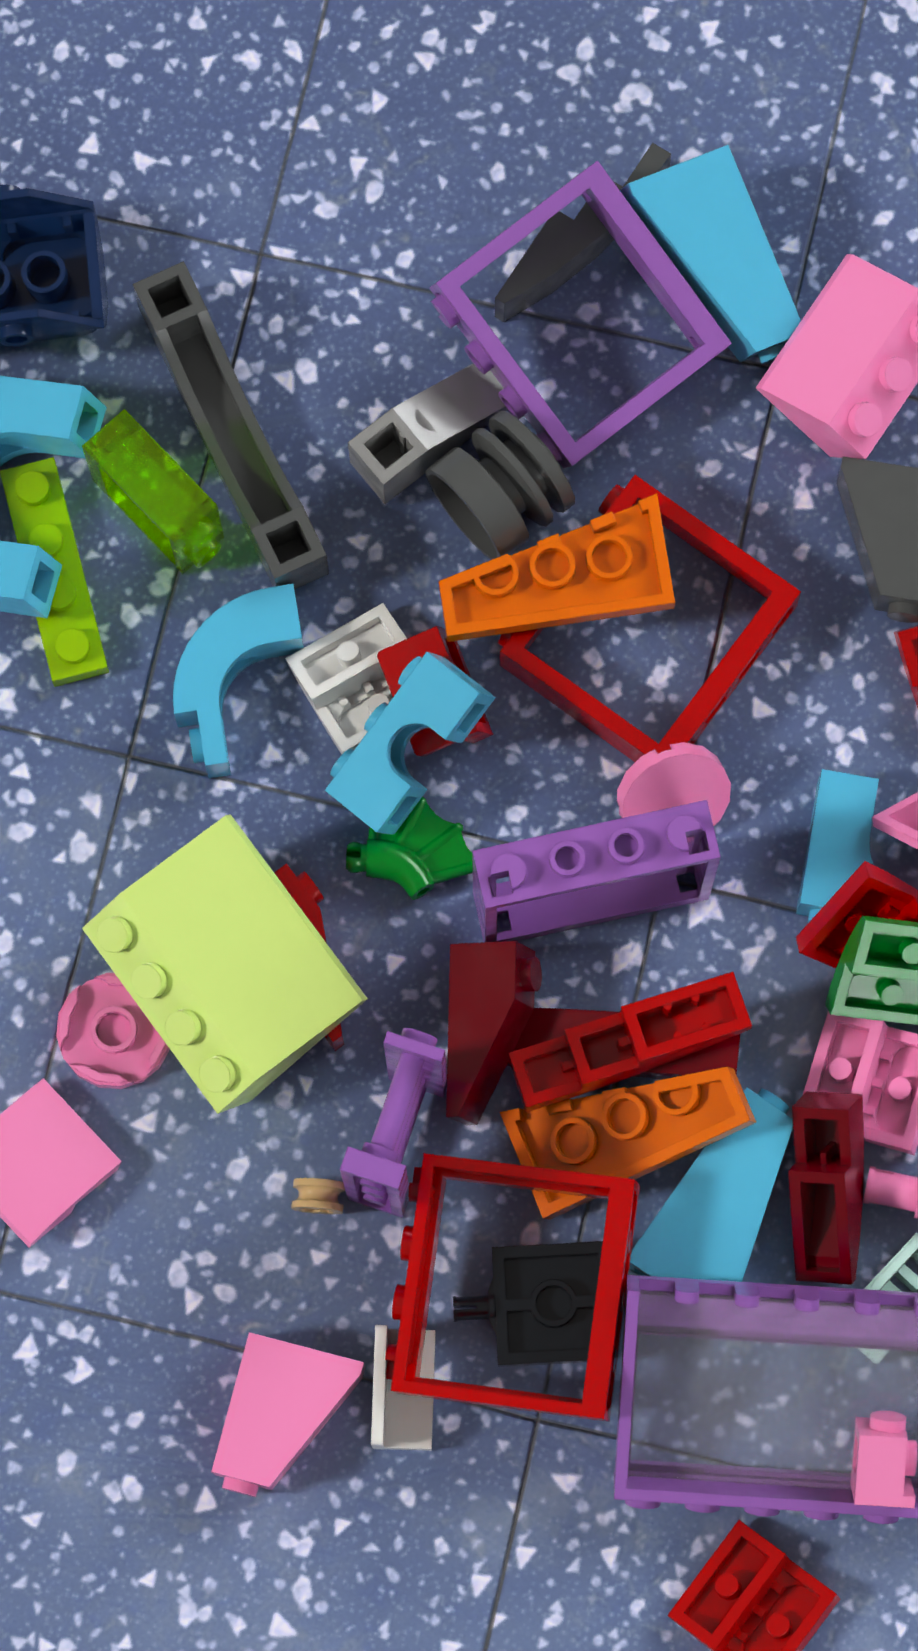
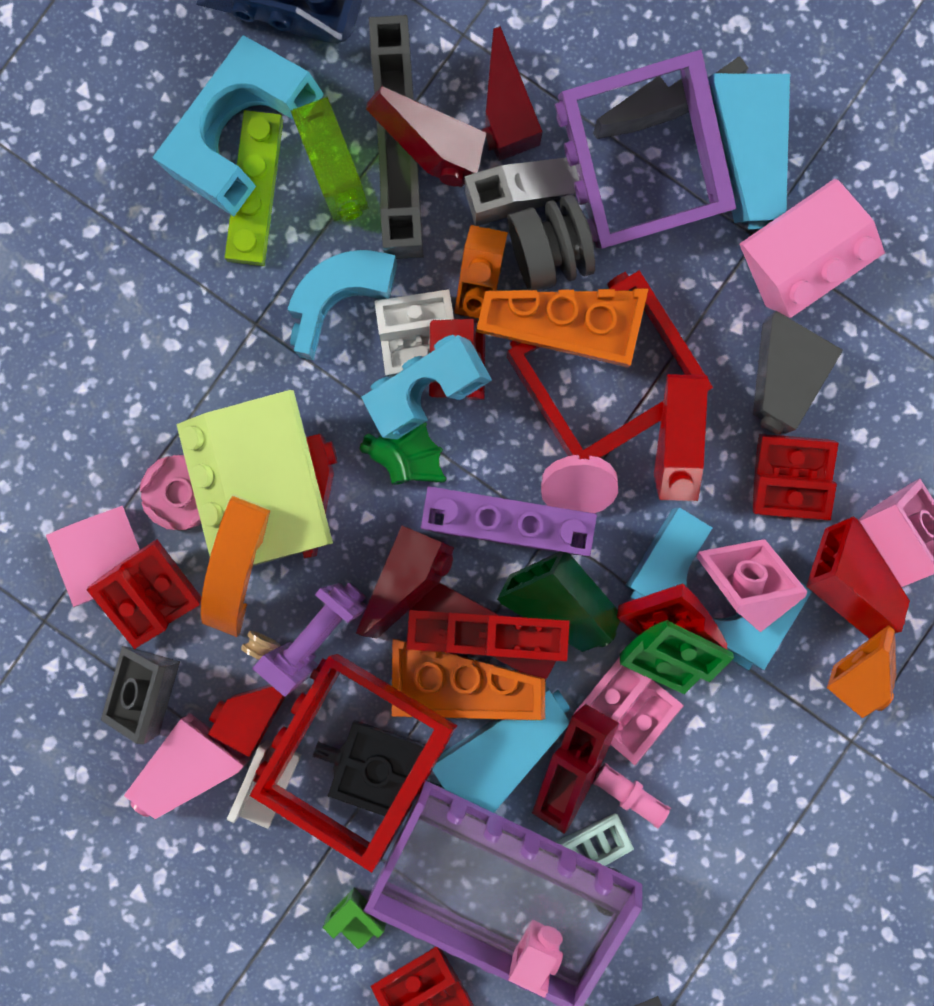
camera: 20 degrees right, 10 degrees up
(126, 1185) = (145, 594): none -> red slope
(169, 1330) = (139, 694): none -> dark grey slope
(242, 1090) = (231, 565): none -> orange slope
(283, 410) = (433, 139): none -> slope
(340, 1297) = (245, 718): none -> red slope
(370, 336) = (509, 116): none -> dark red slope
(416, 559) = (479, 268): none -> orange slope
(609, 1531) = (352, 921): none -> bright green panel
(708, 939) = (563, 591): none -> dark green slope
(785, 674) = (682, 438): none -> red slope

